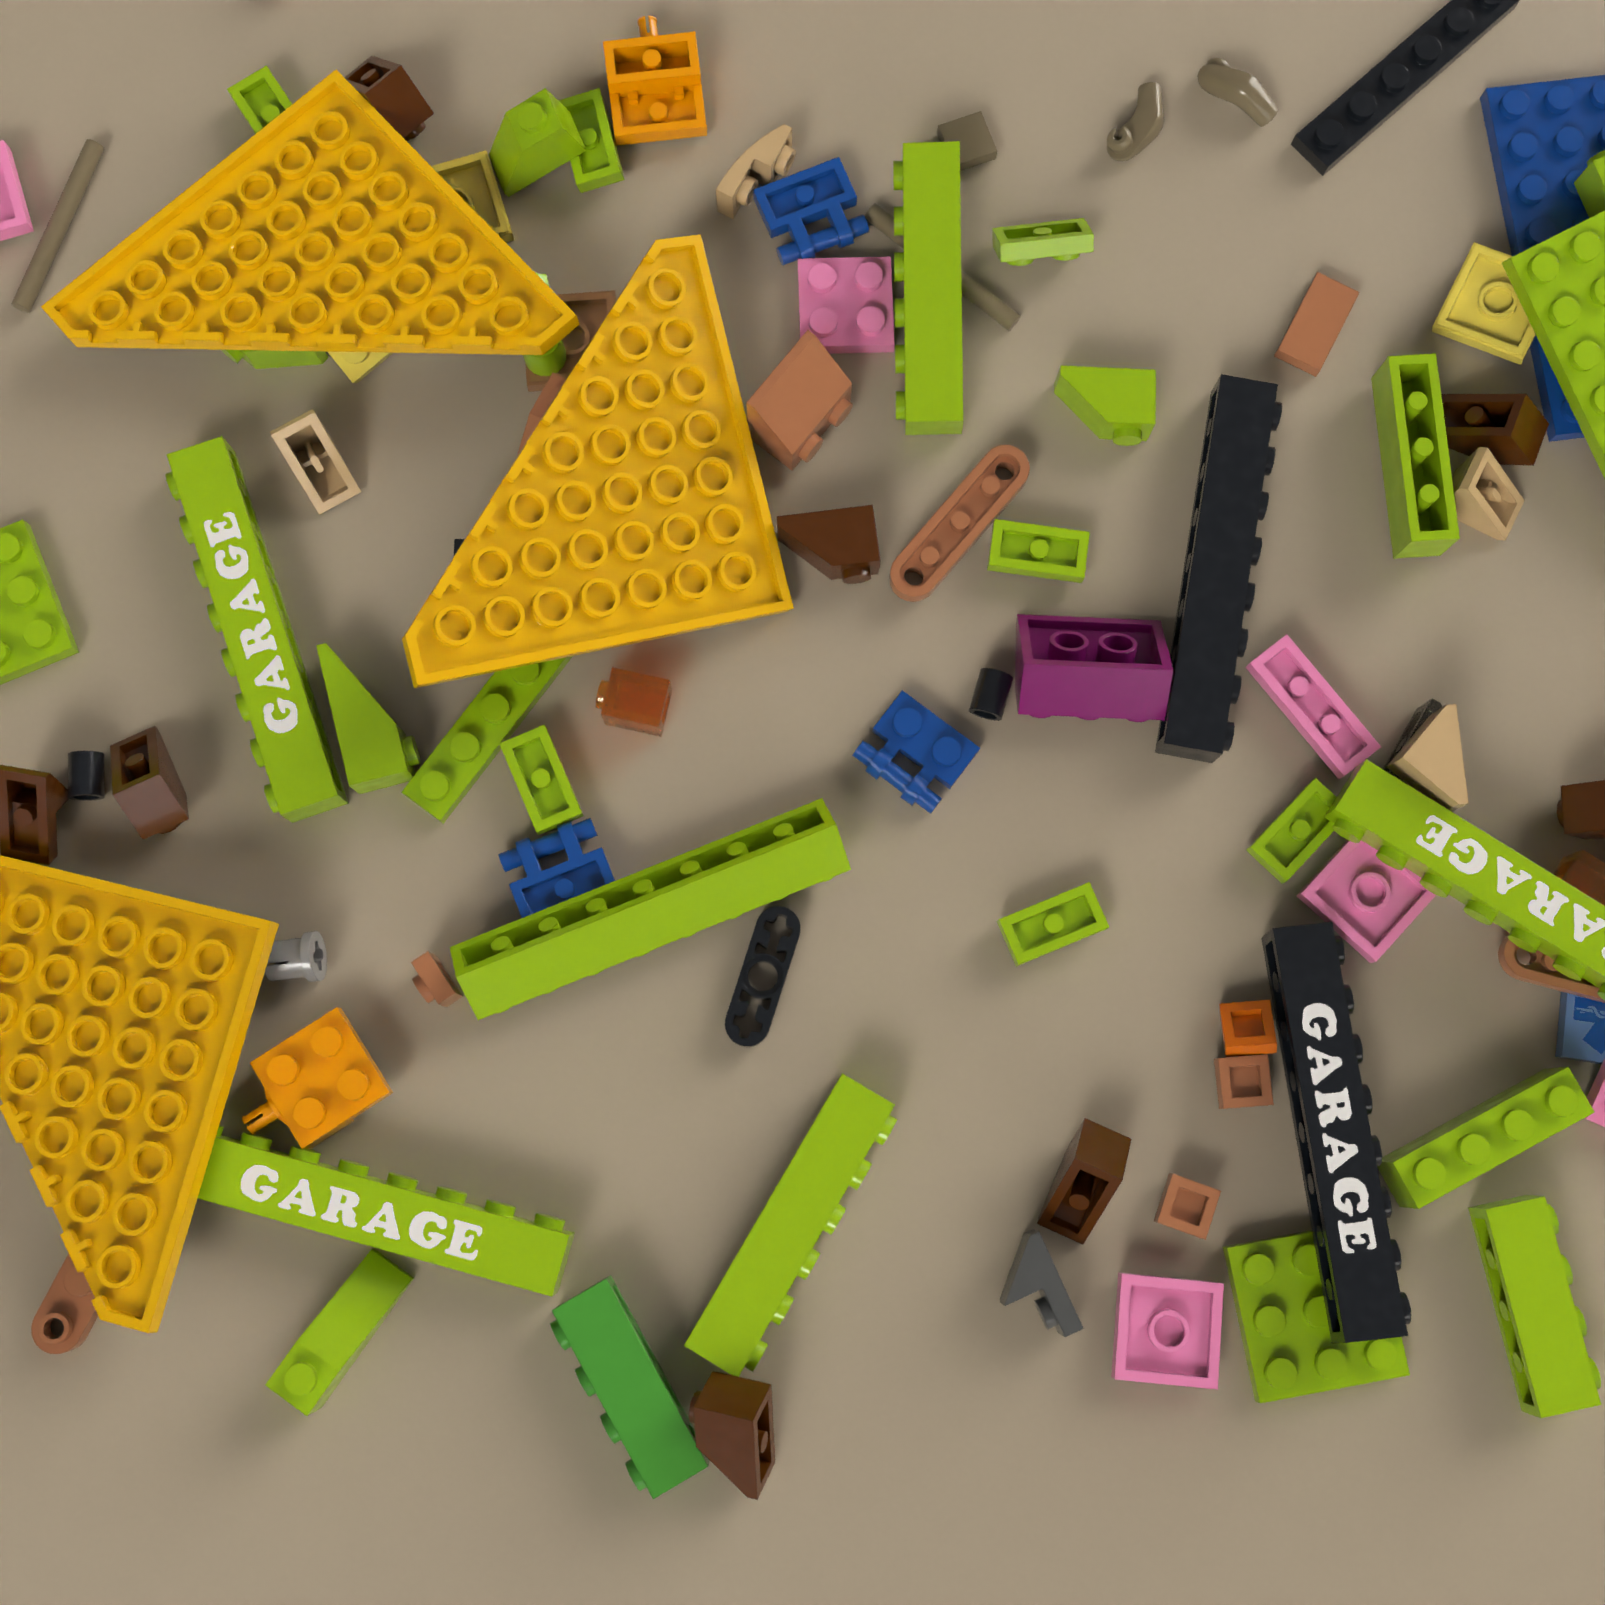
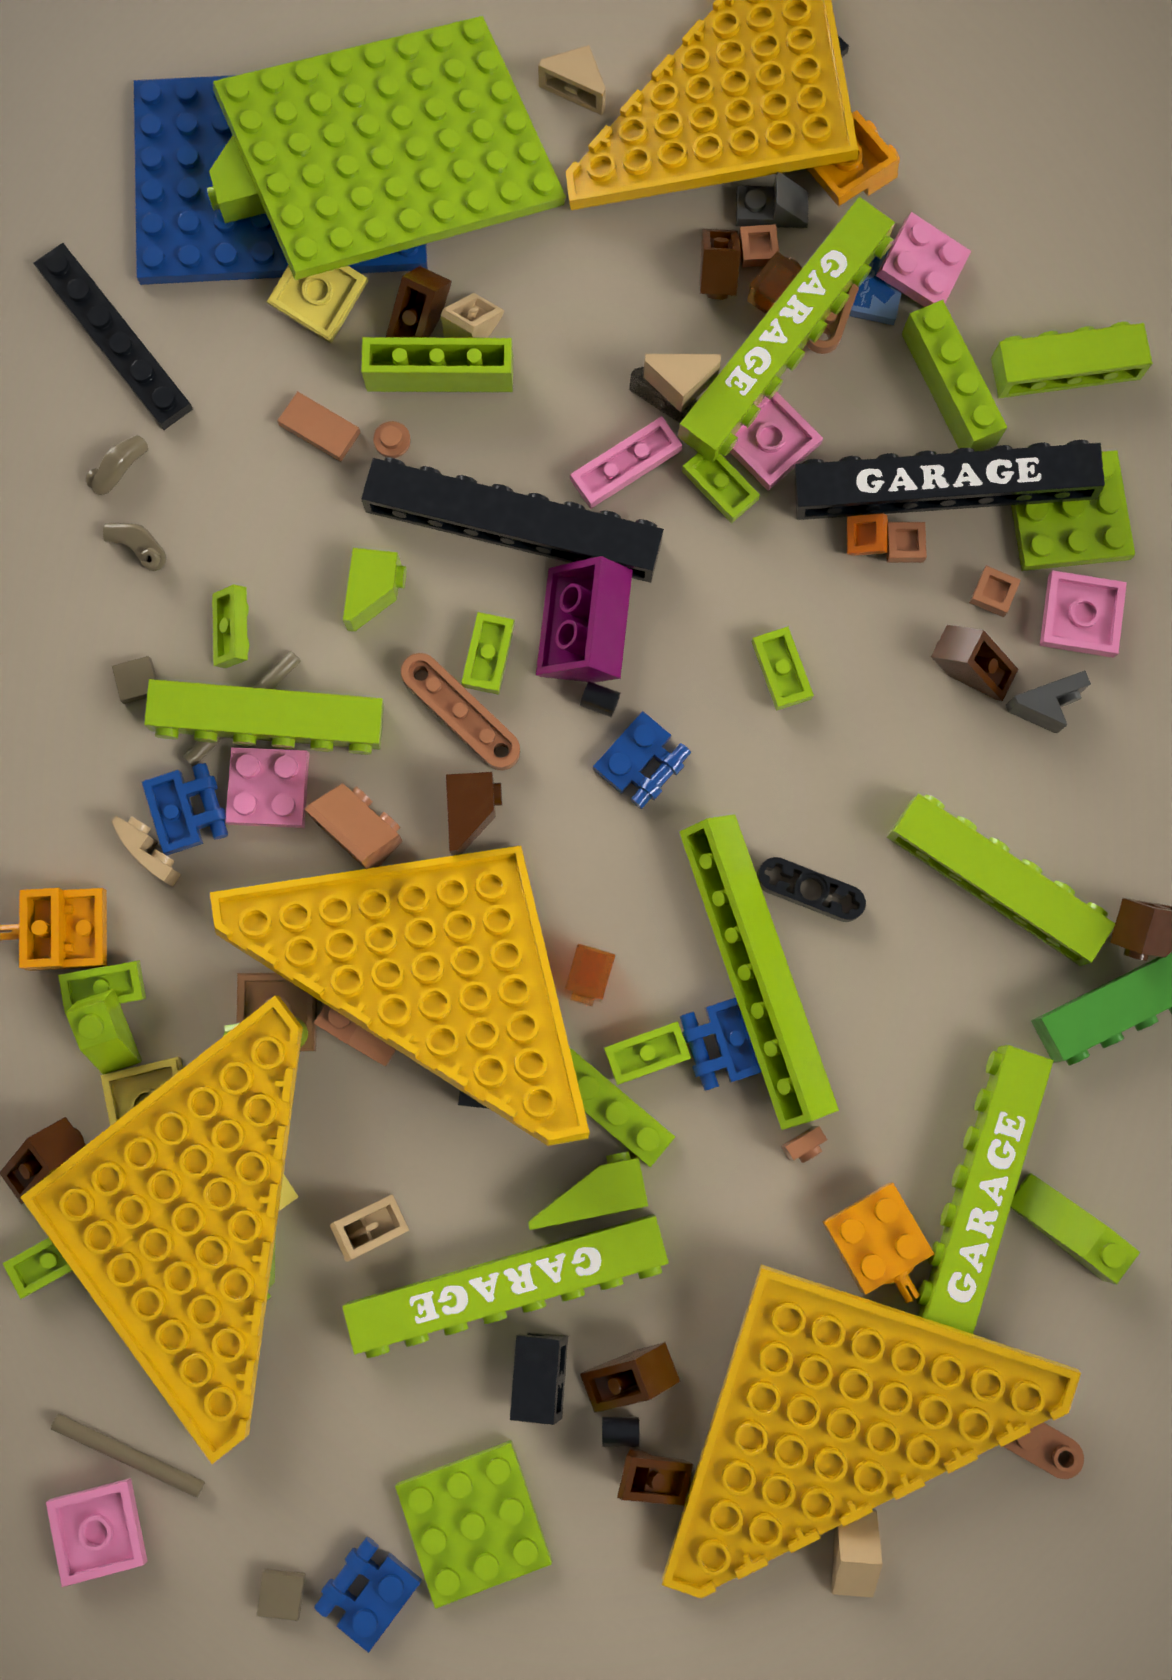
camera: 85 degrees left, 0 degrees up
(146, 675) = (539, 1378): none -> black hinge
(298, 958) = (781, 1252): light grey bush -> none
(1309, 412) = (392, 439): none -> nougat plate

